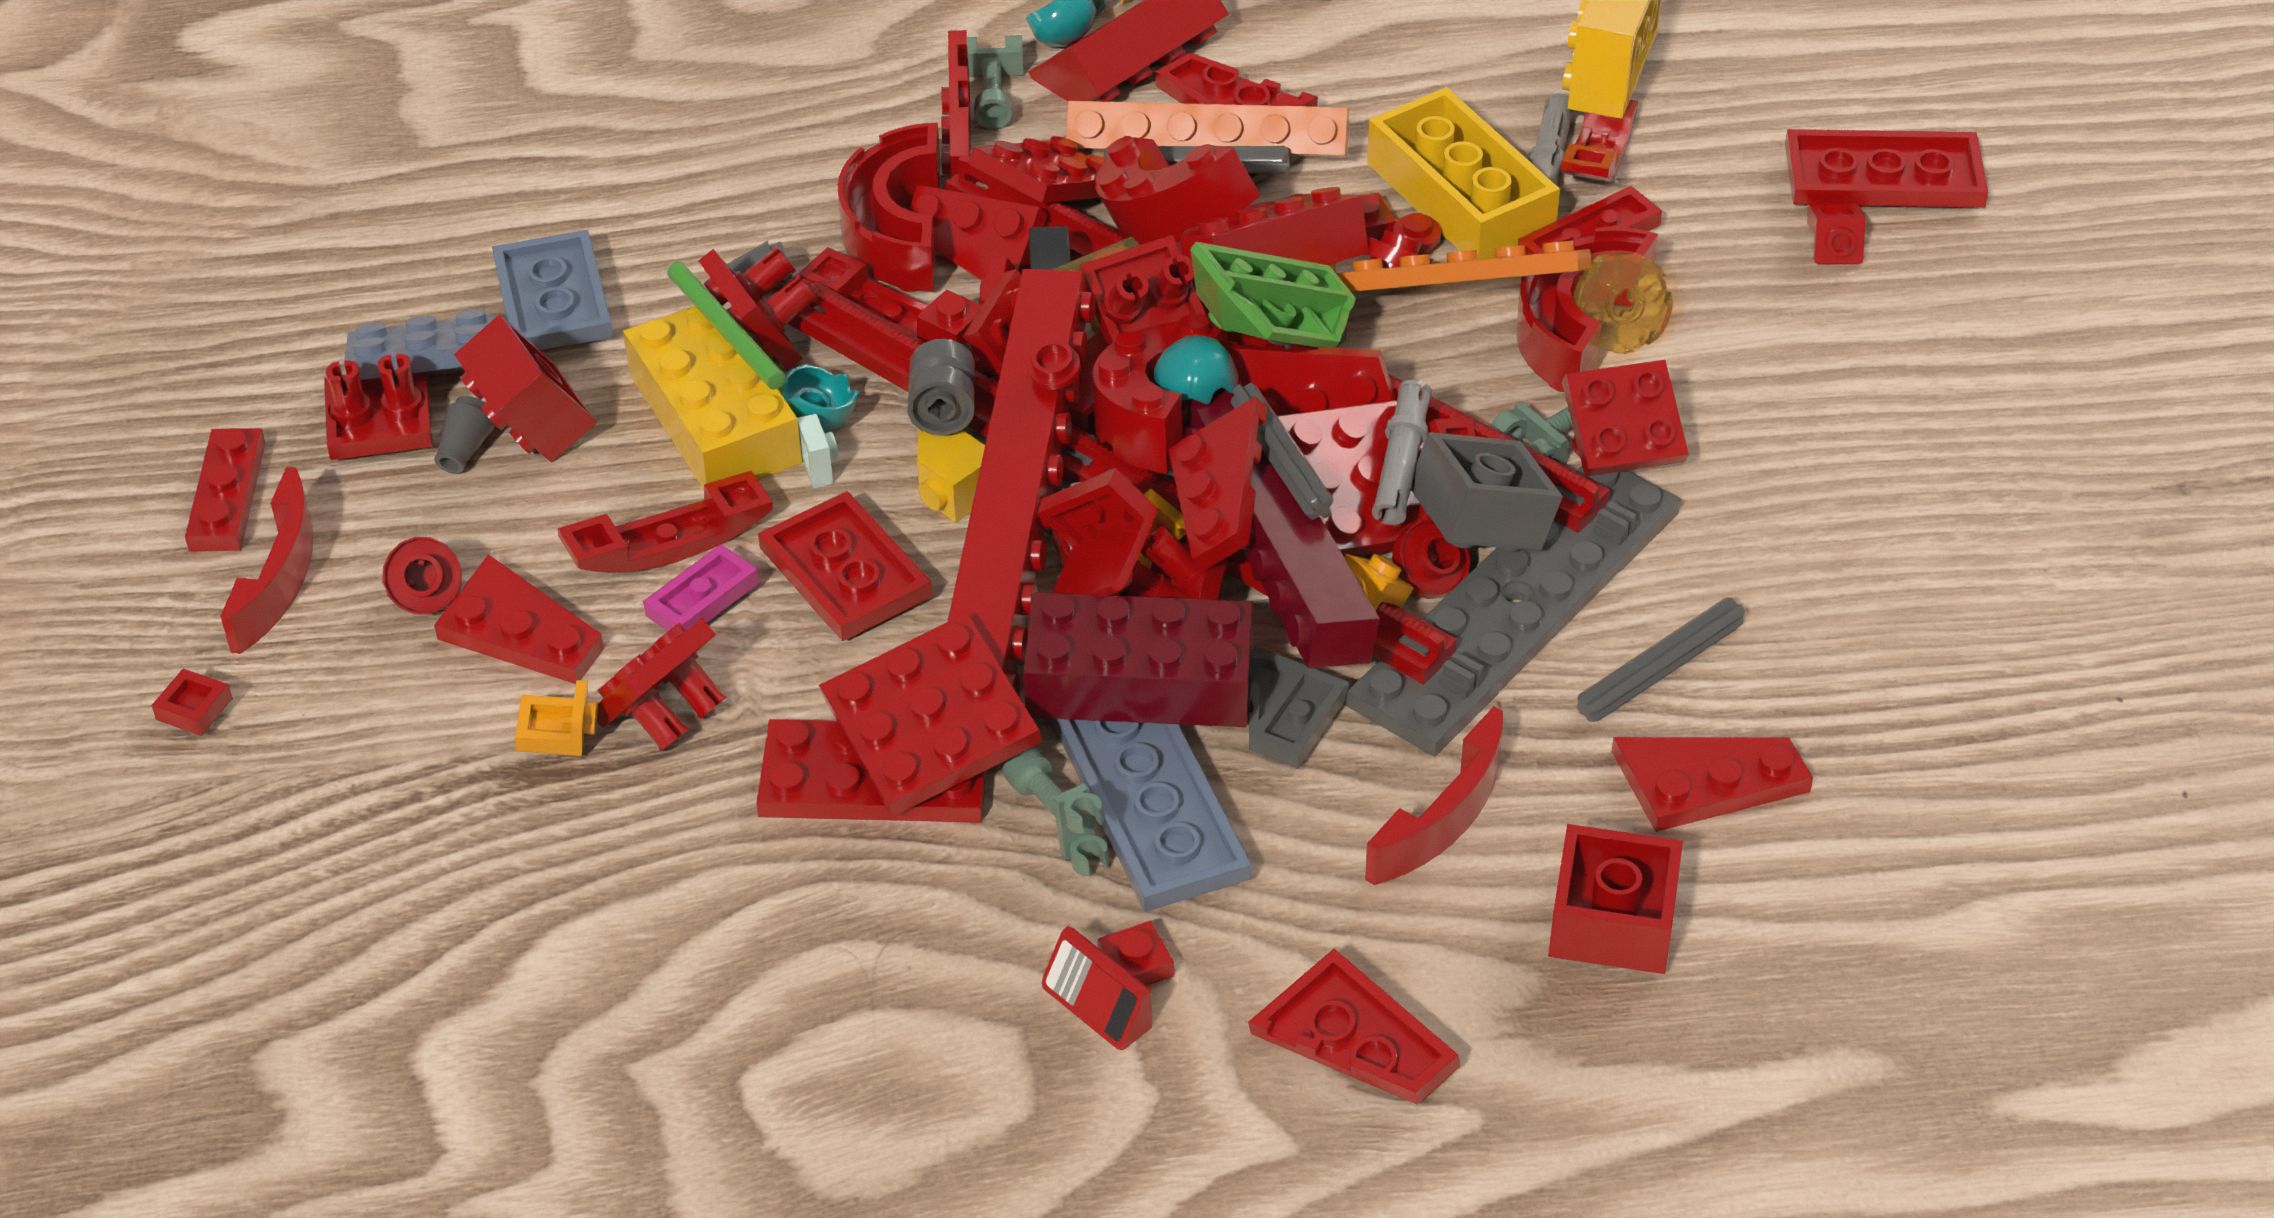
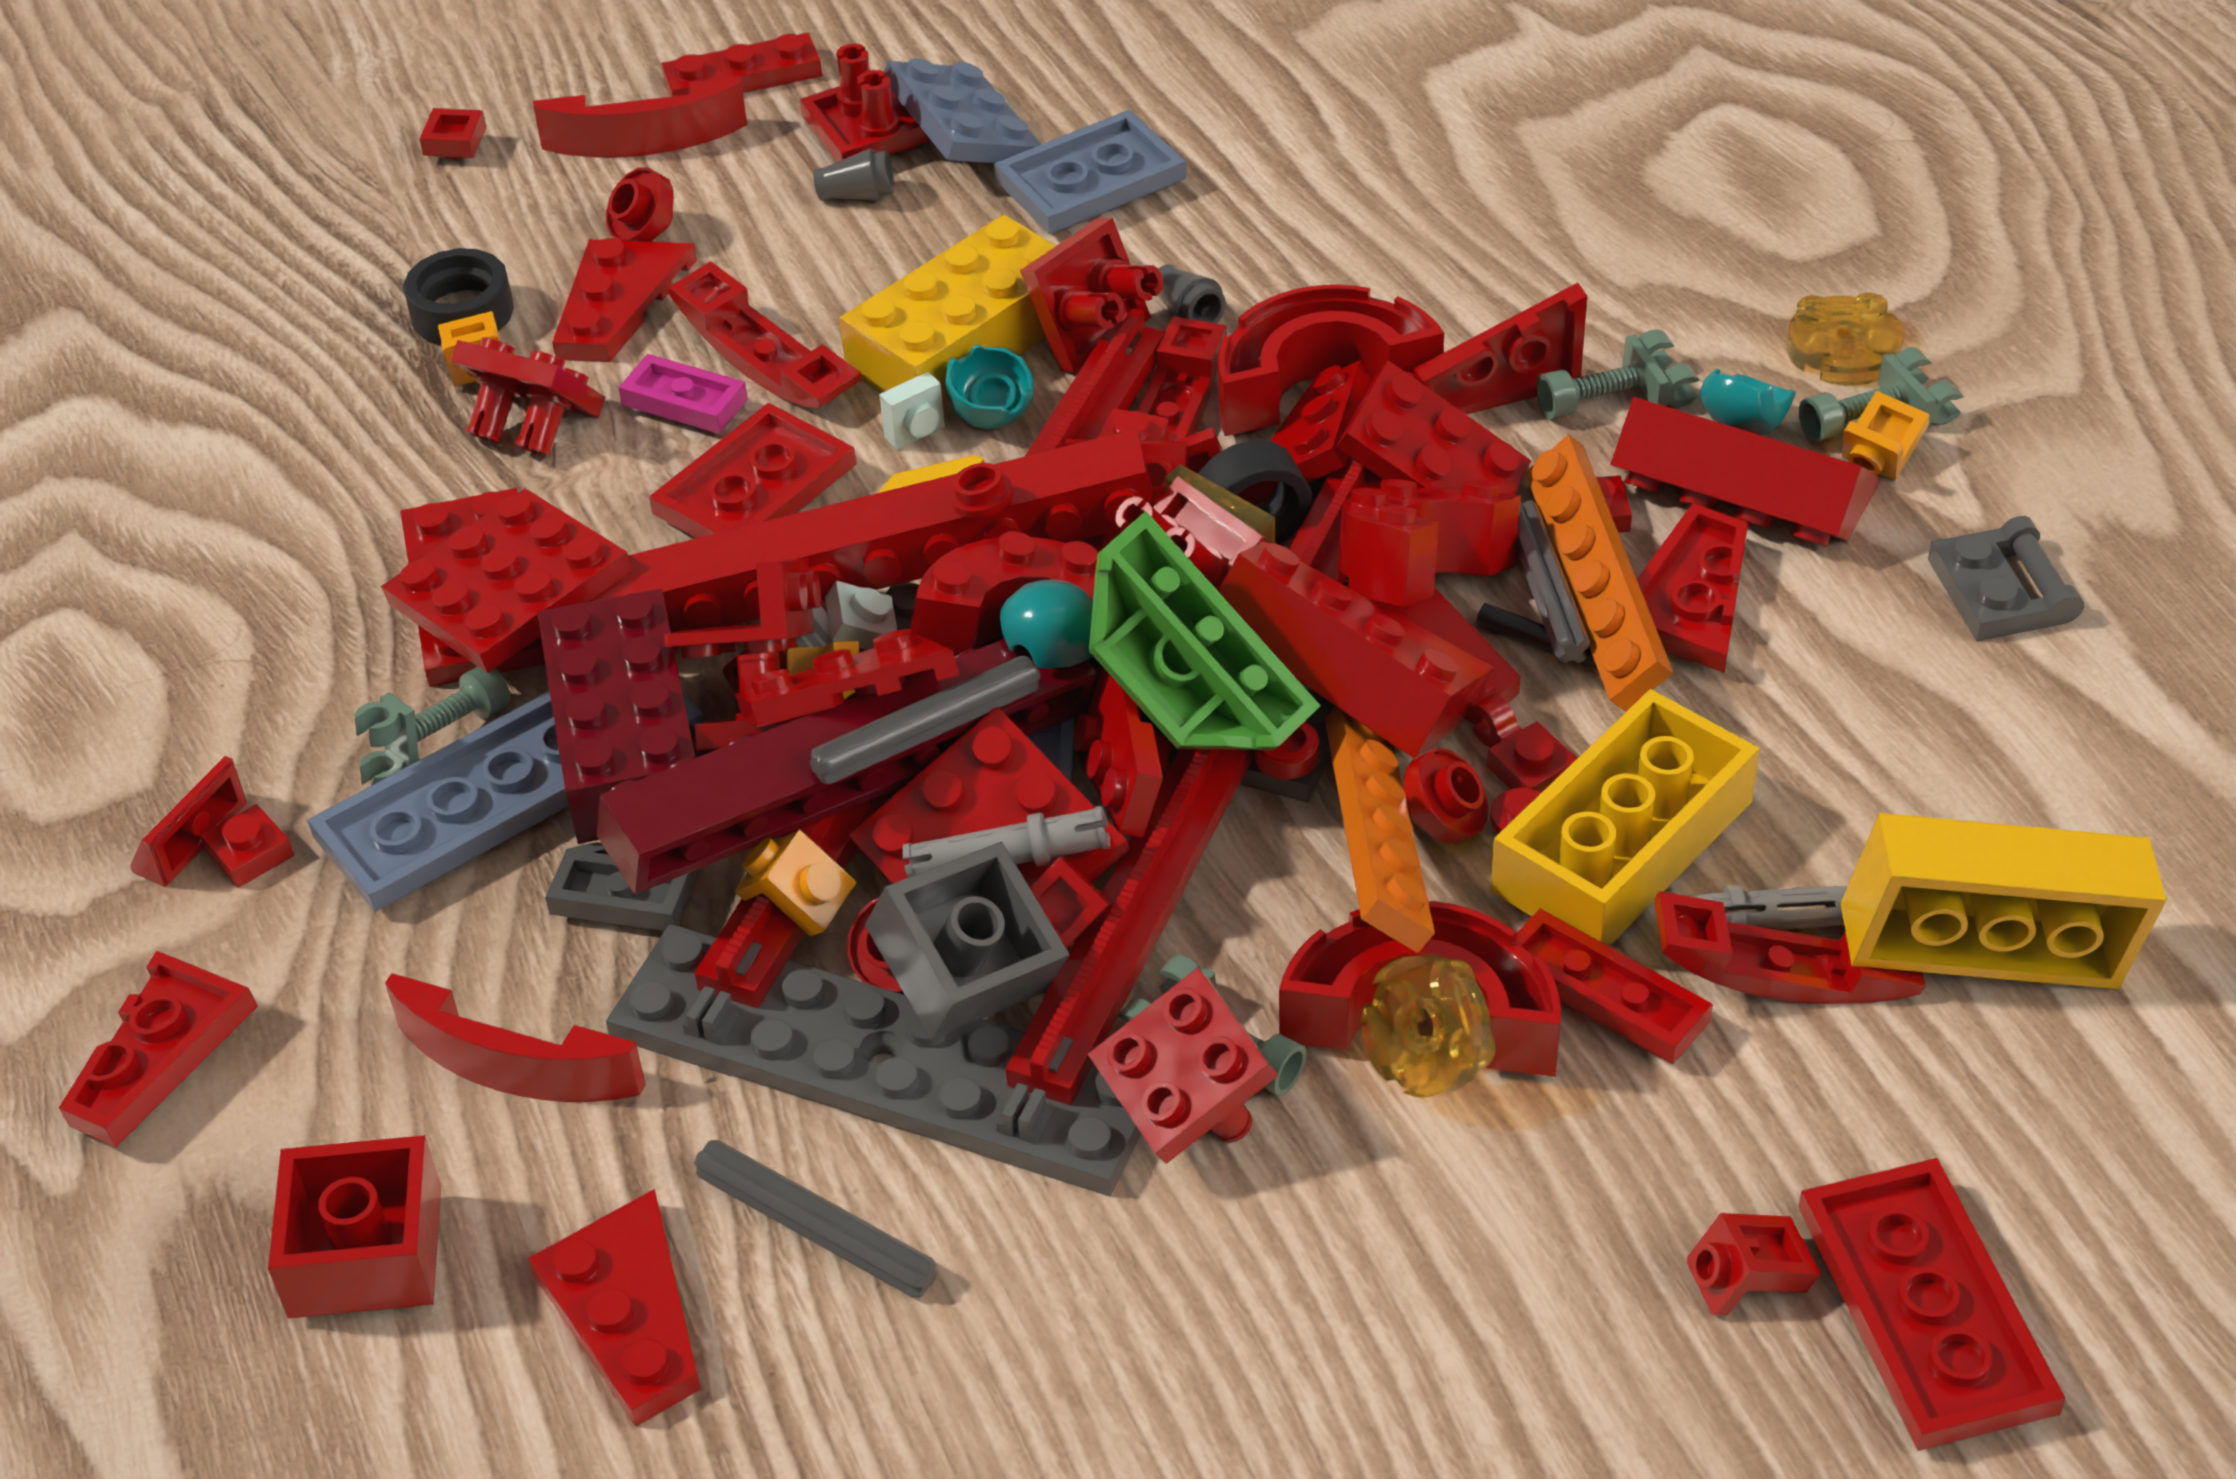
camera: 75 degrees right, 0 degrees up
(458, 696) = (454, 272): none -> black tyre
(523, 390) = (893, 178): red brick -> none
(726, 325) = (1009, 274): bright green bar -> none
(941, 387) = (961, 440): dark grey wheel -> none

